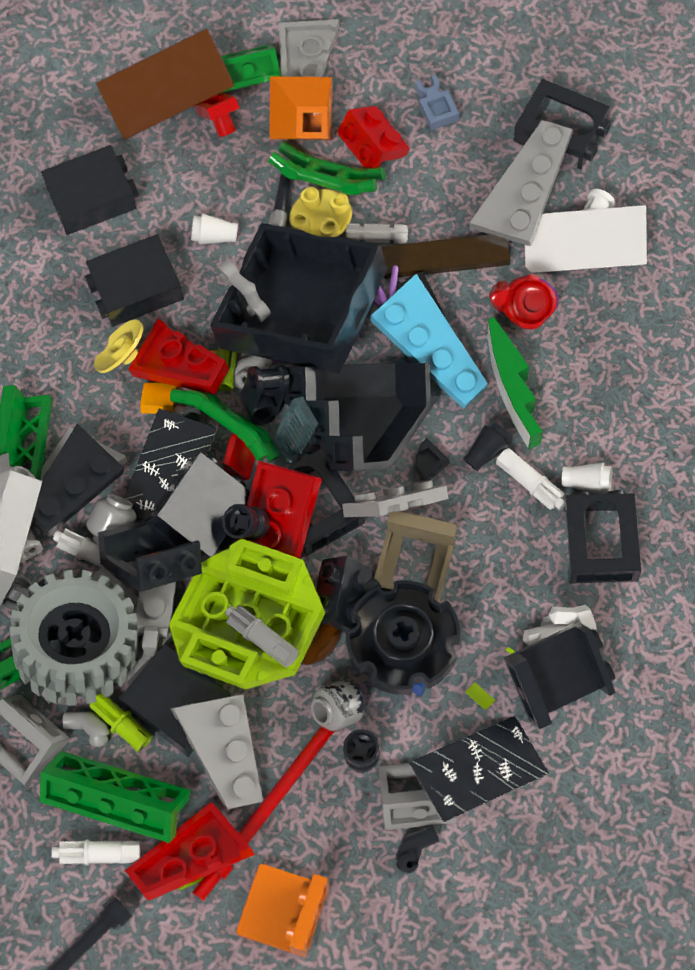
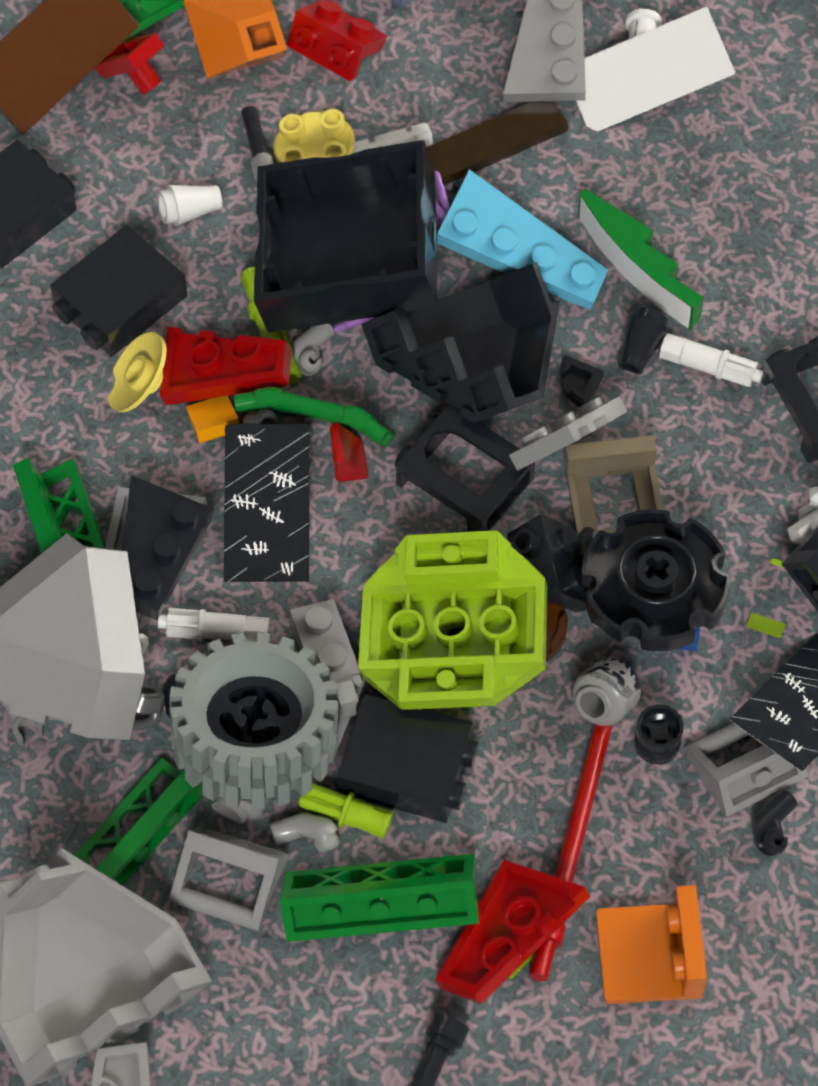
camera: 25 degrees left, 5 degrees down
(97, 852) = (388, 972): white piece -> none
(110, 513) = (224, 577): light grey head -> none
(153, 556) = (279, 583): black panel -> none
(197, 503) = (332, 522): brick -> none
(224, 745) = (494, 786): light grey wing -> none
(231, 275) = (253, 233): light grey arm -> none
(245, 522) = (392, 513): black wheel -> none
(256, 631) = (487, 634): light grey piece -> none
(264, 393) = (348, 363): black piece -> none
(289, 503) = (432, 485): red tile -> none
(295, 430) = (407, 393): clear light blue tile -> none
(307, 169) = (299, 94): green piece -> none
(525, 300) = (609, 160): red hair -> none
(590, 478) = (779, 333): white cone -> none

